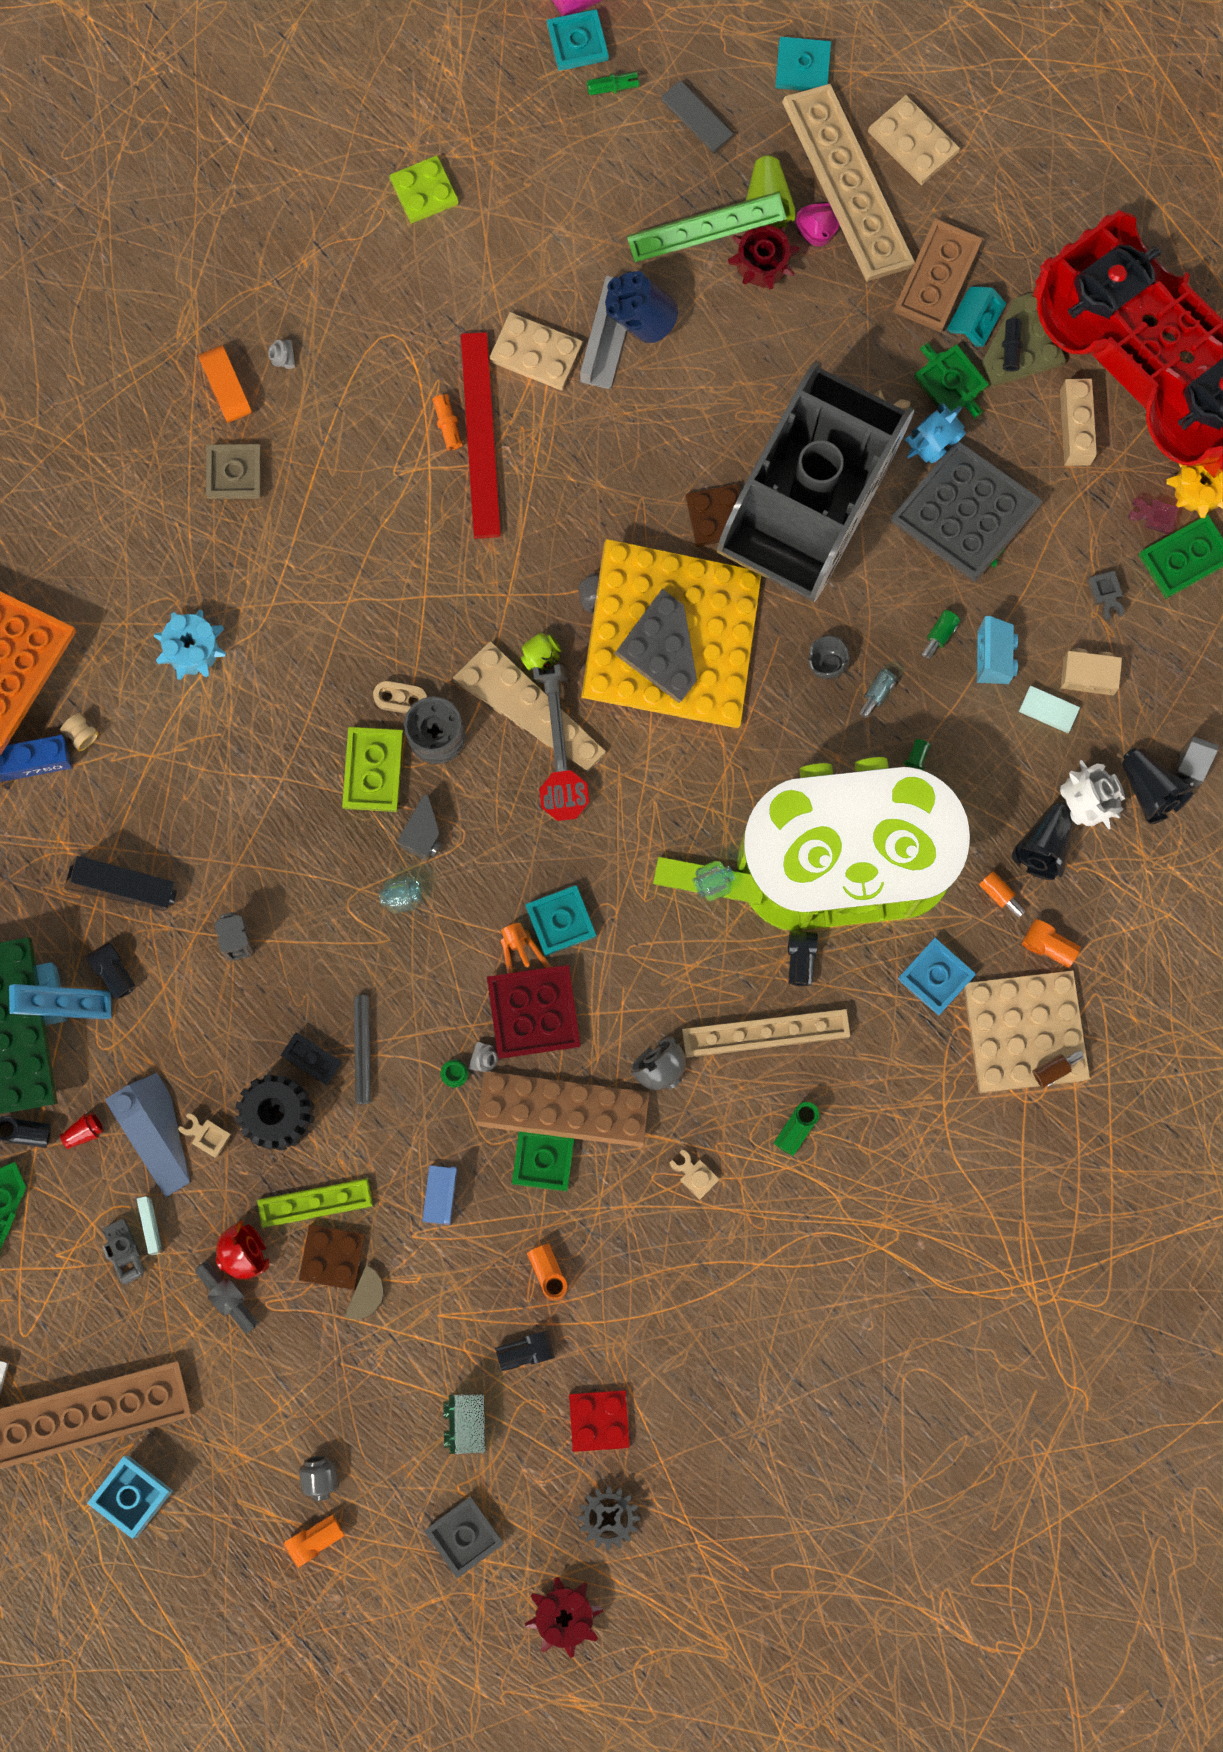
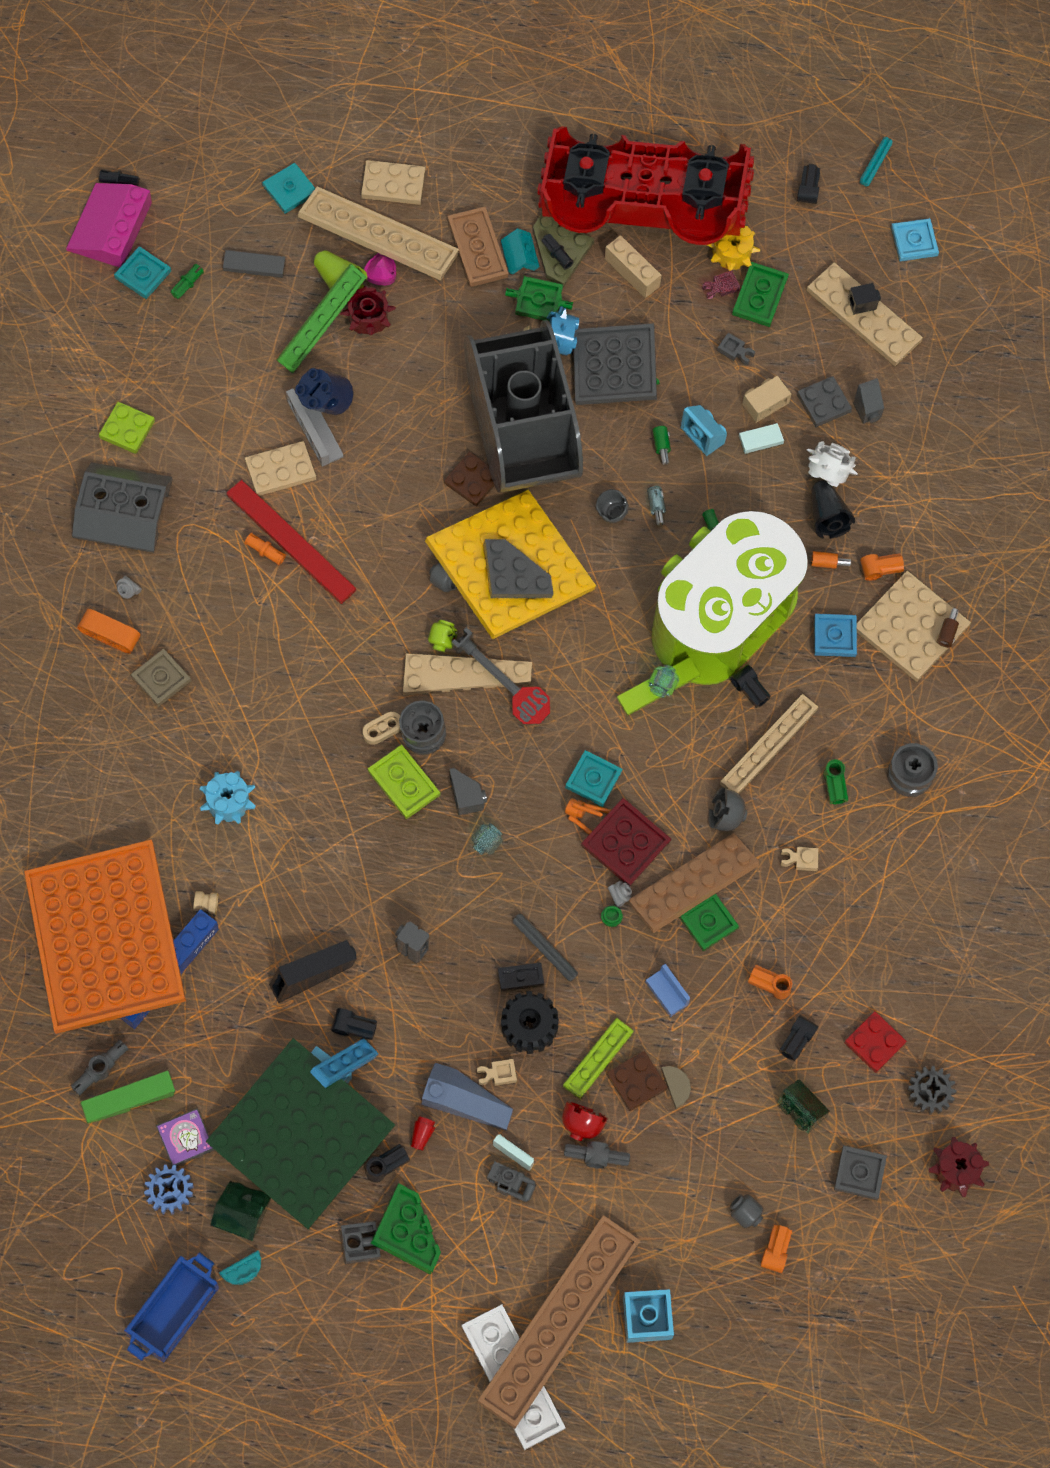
camera: 40 degrees left, 10 degrees down
(328, 271) = (117, 517): none -> dark grey slope
(902, 1177) = (912, 770): none -> dark grey wheel
(1151, 723) = (824, 401): none -> dark grey plate
(1154, 785) = (858, 431): black cone -> none

